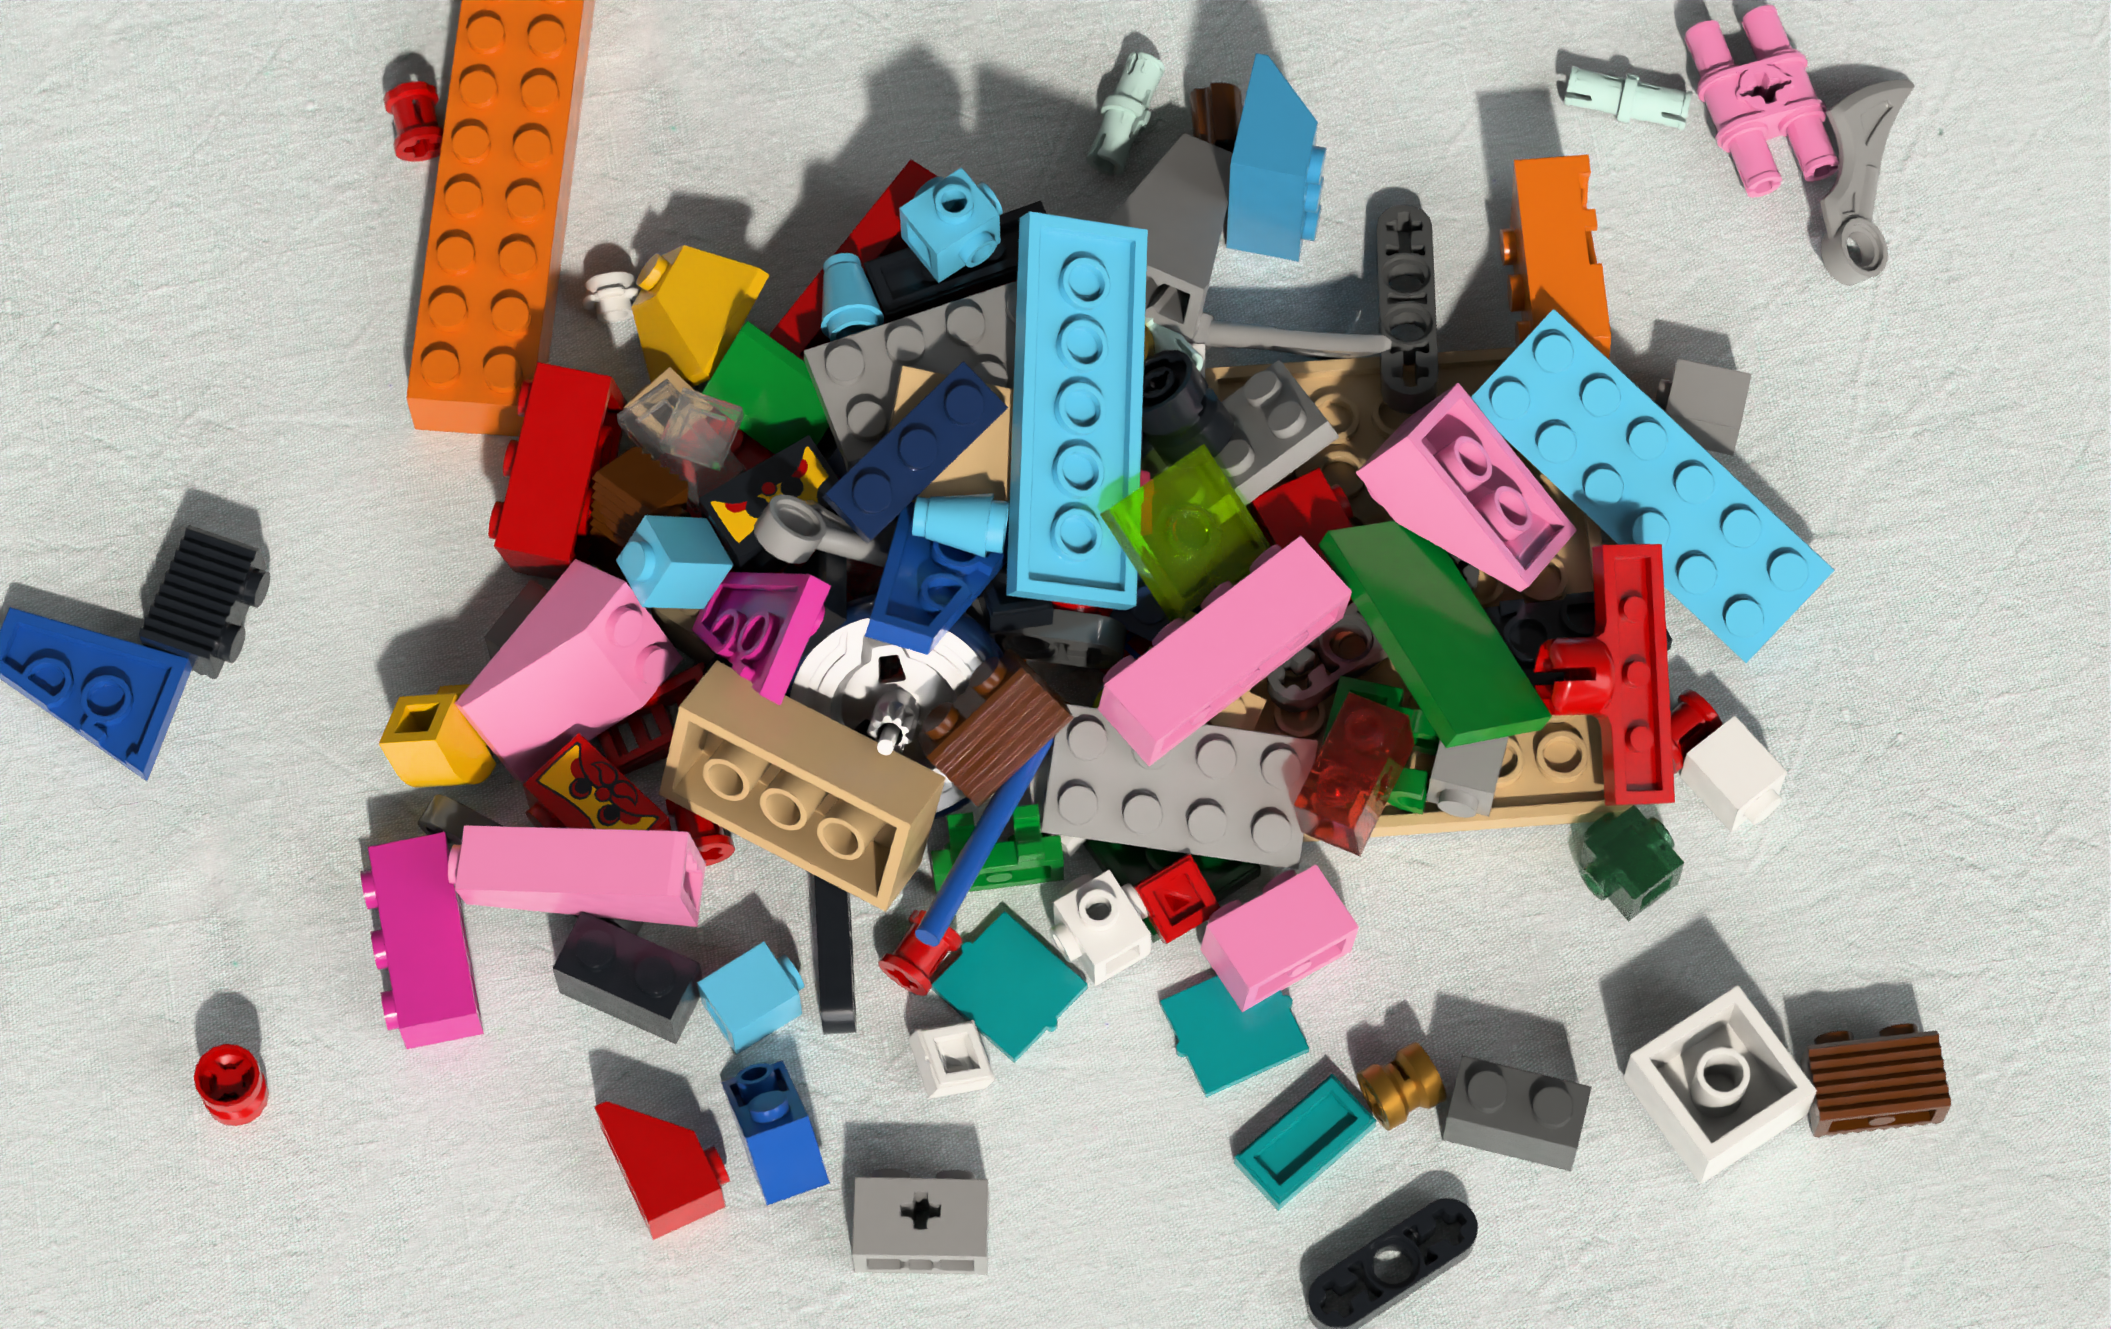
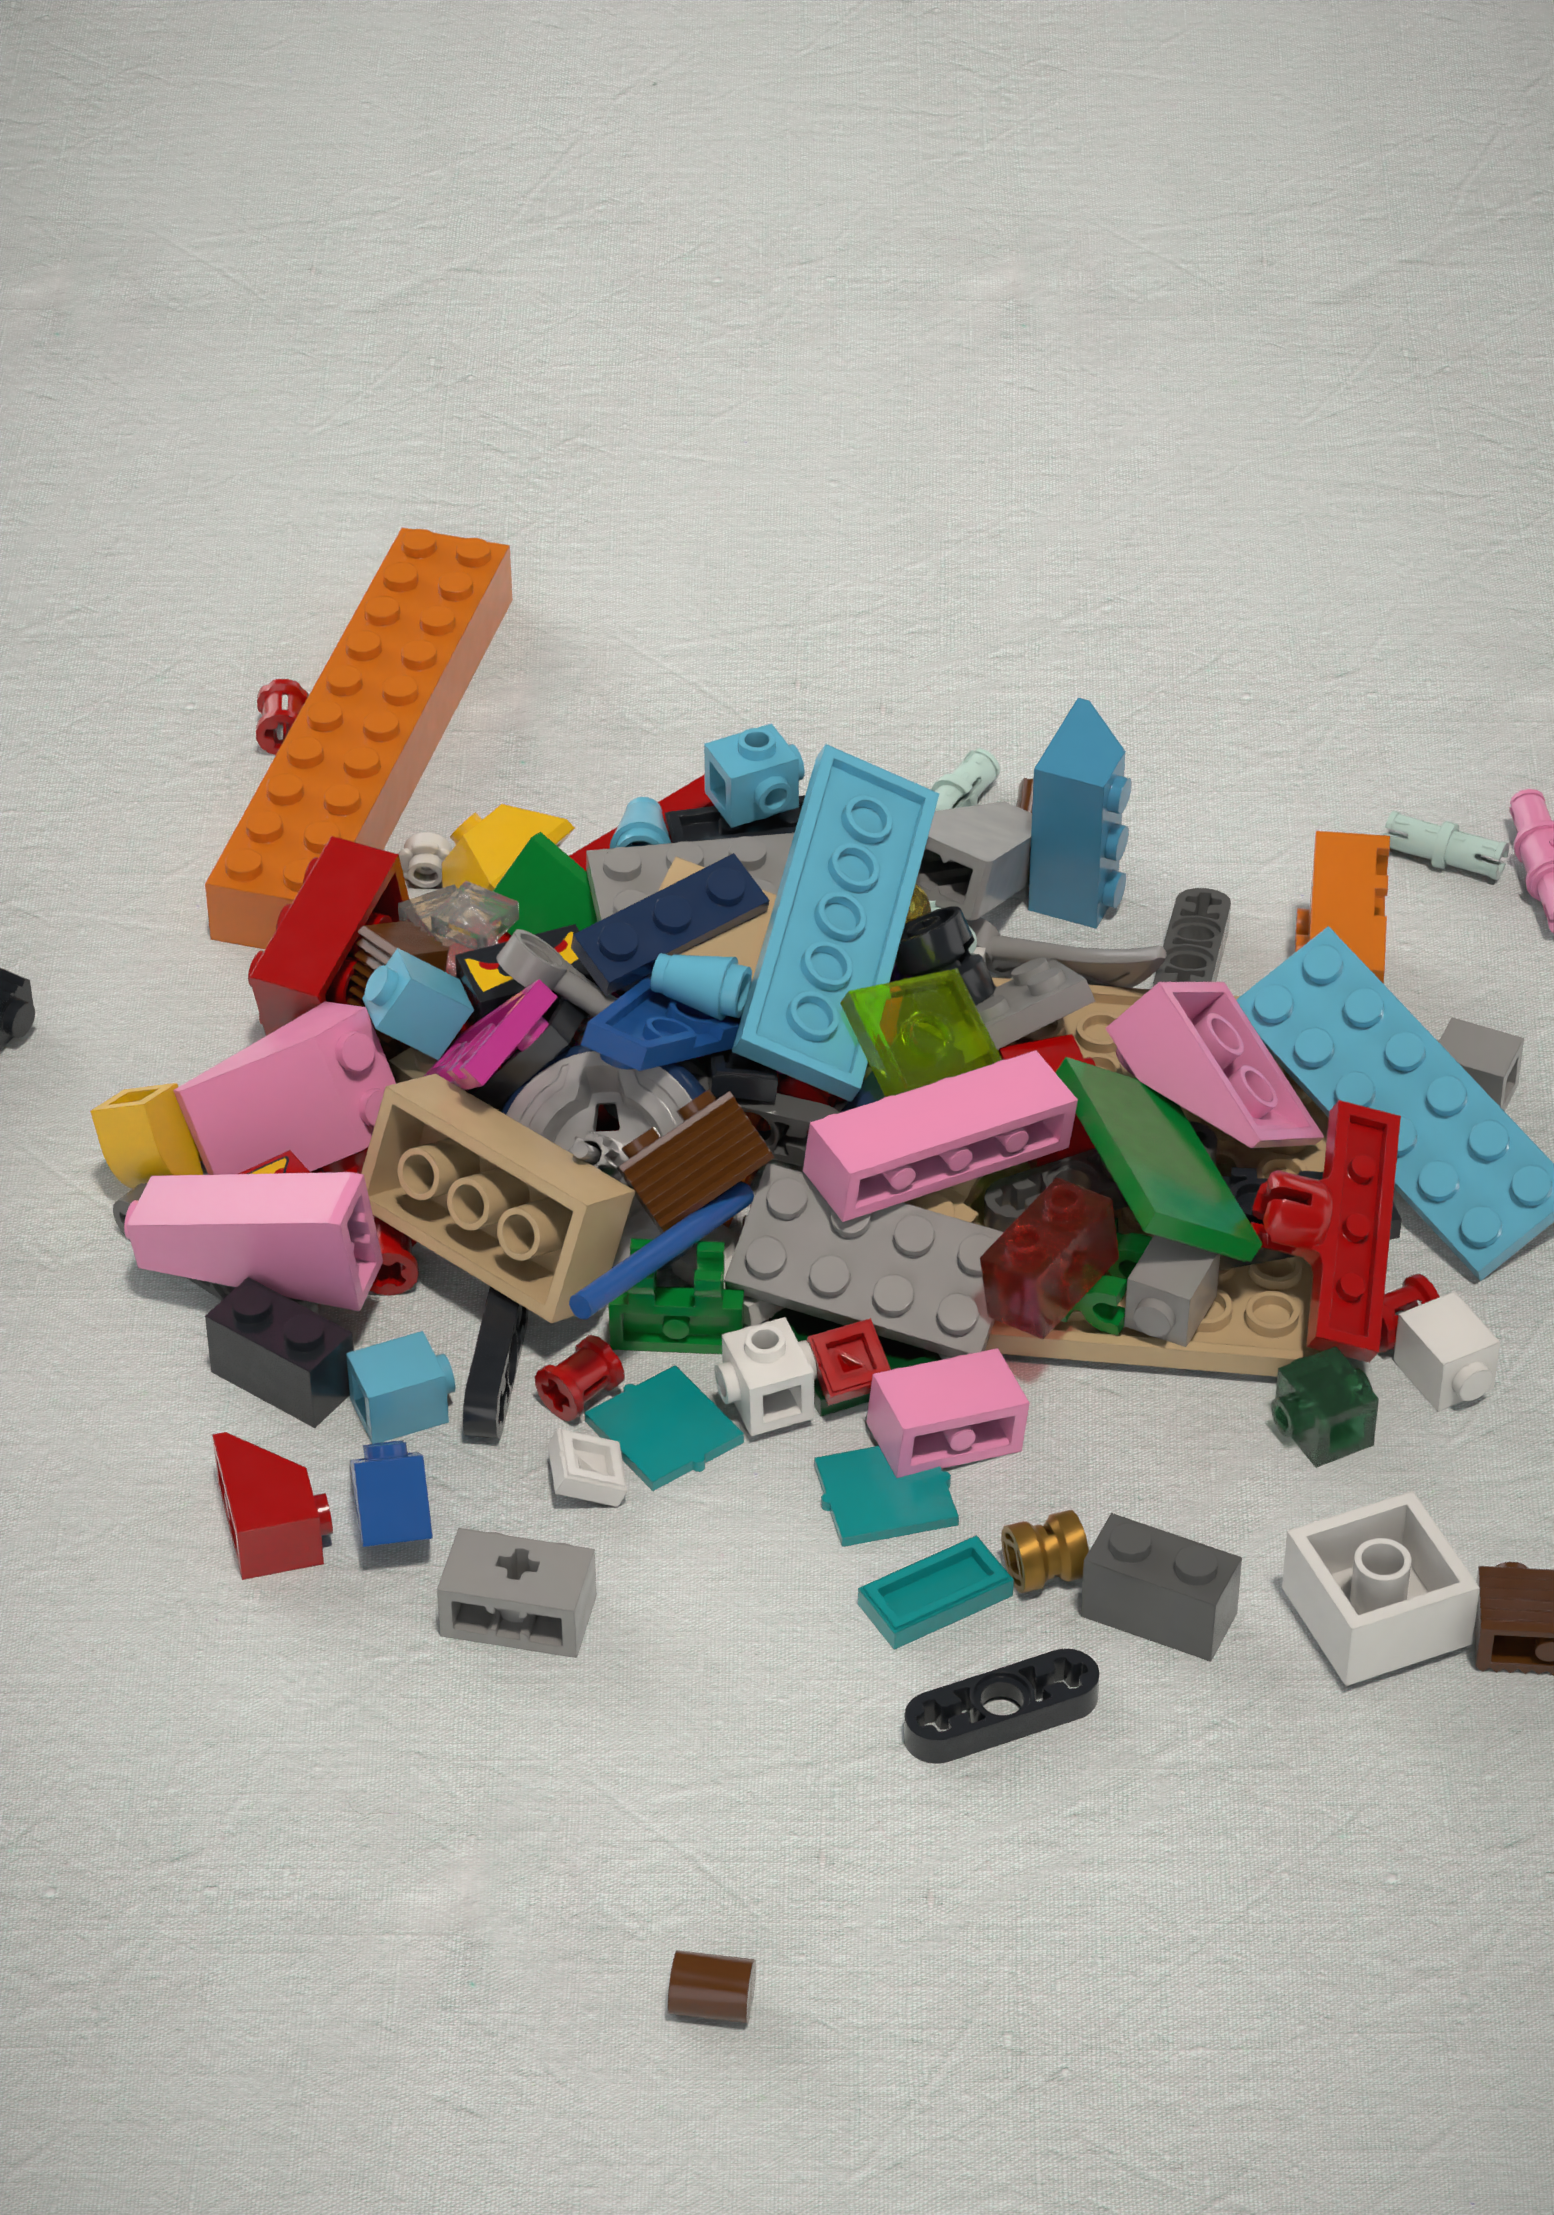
camera: 10 degrees right, 25 degrees down
(421, 942) = (85, 1302): dark pink brick -> none

